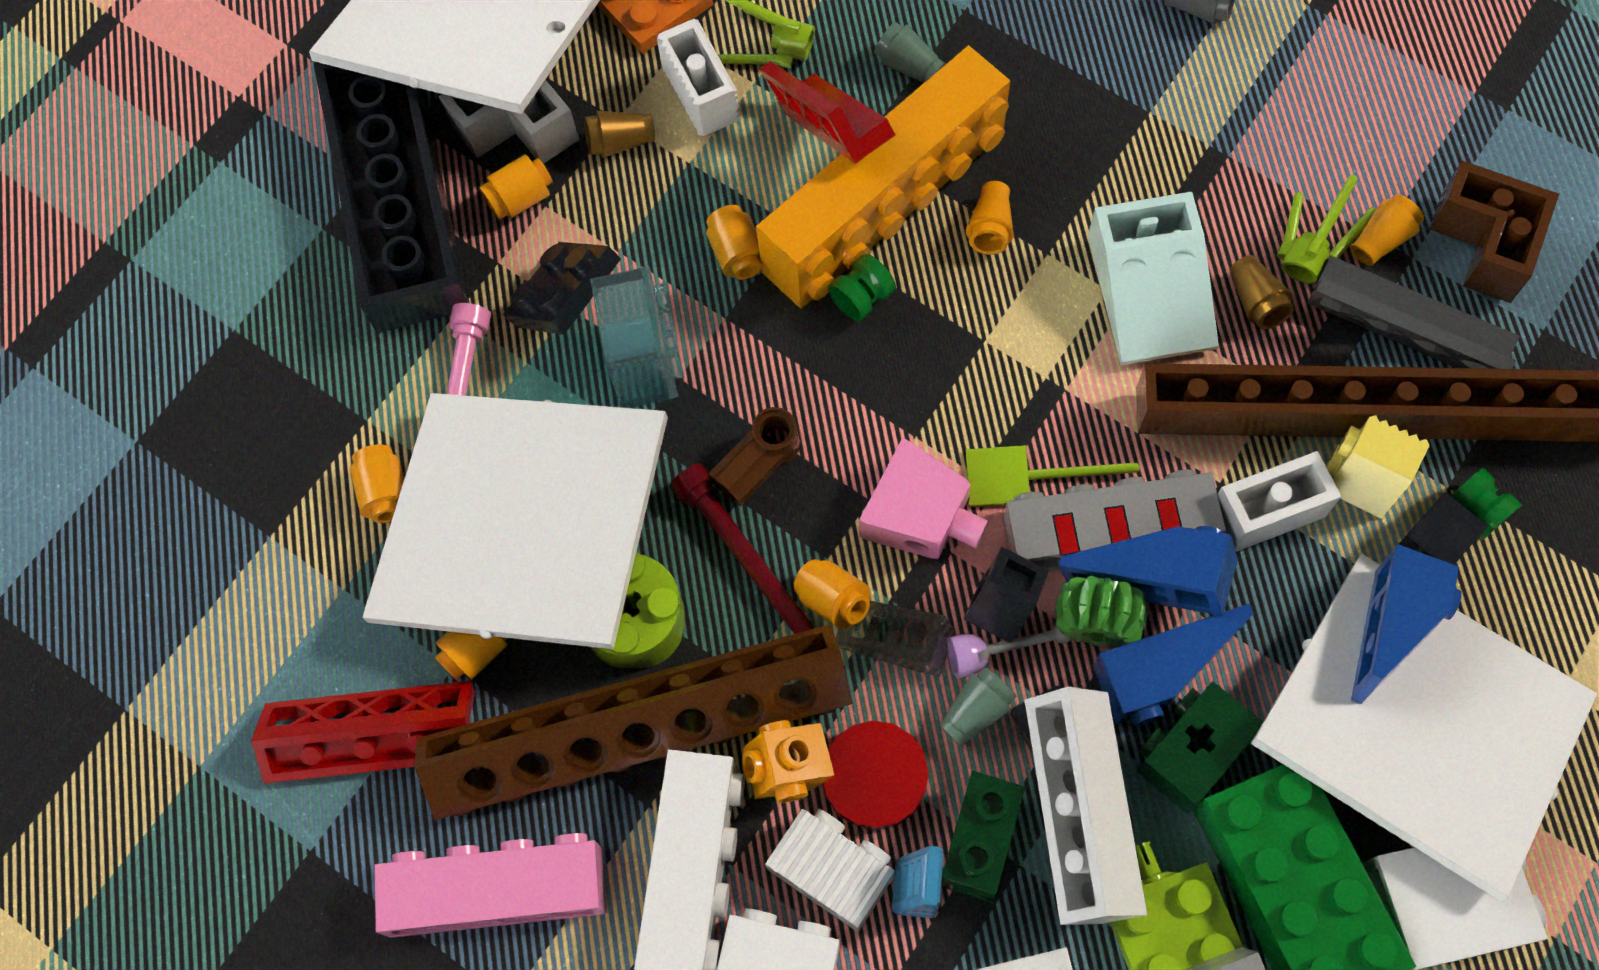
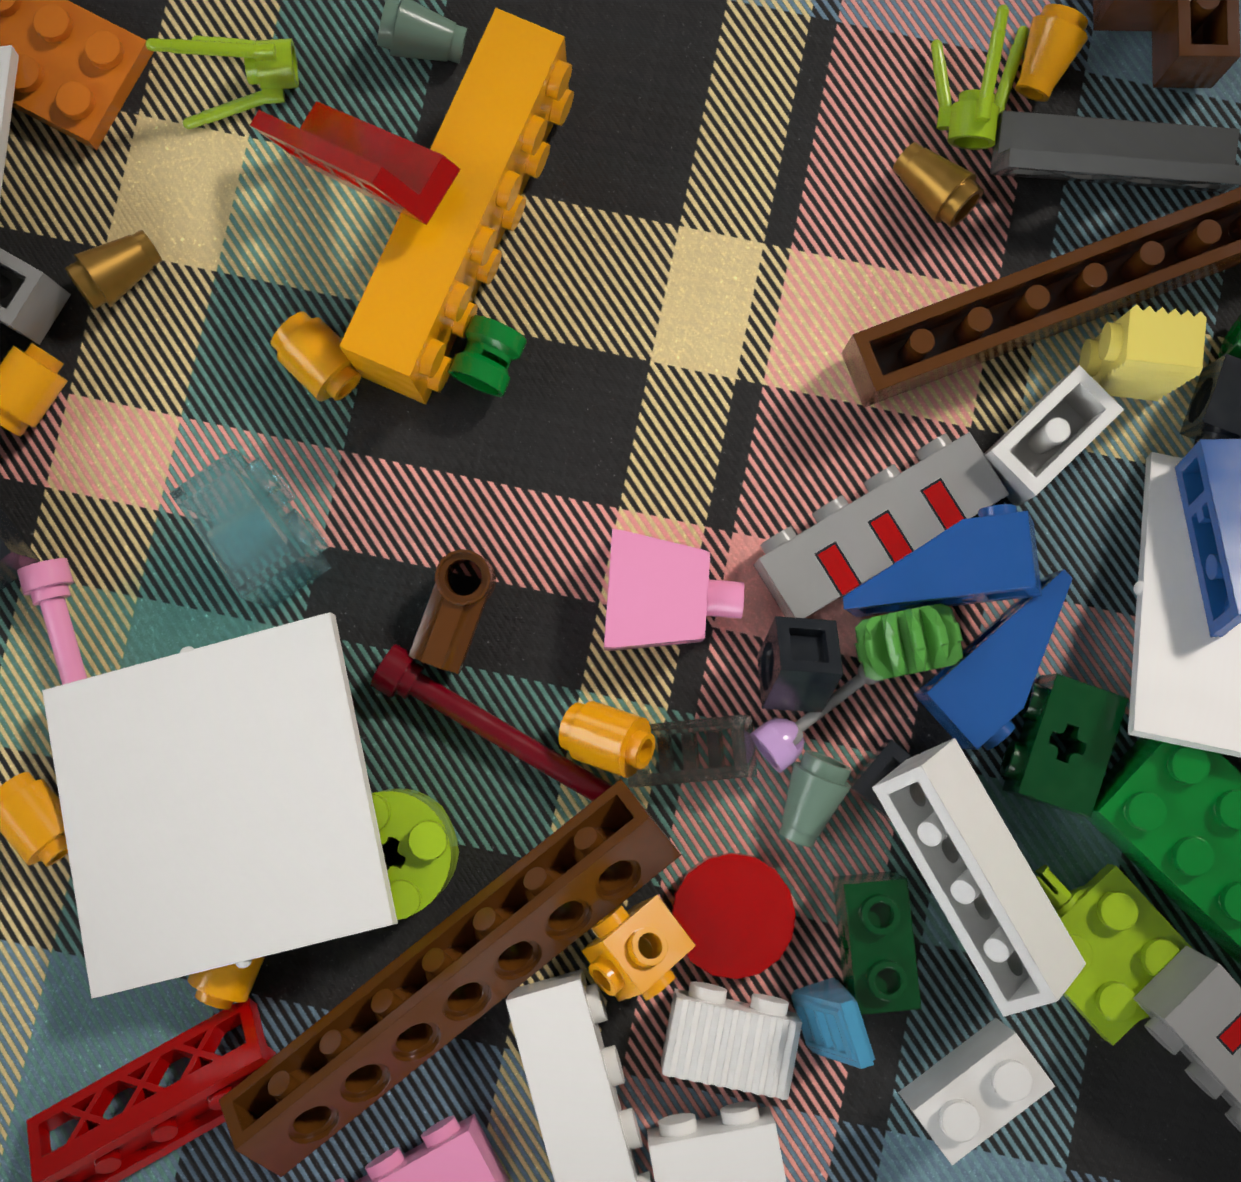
camera: 30 degrees left, 15 degrees up
(560, 287) = (132, 501): black plate -> none
(698, 77) = (179, 162): white brick -> none
(991, 221) = (602, 214): light orange cone -> none
(1003, 474) = (735, 519): lime piece -> none
(1154, 277) = (816, 214): light aqua slope -> none

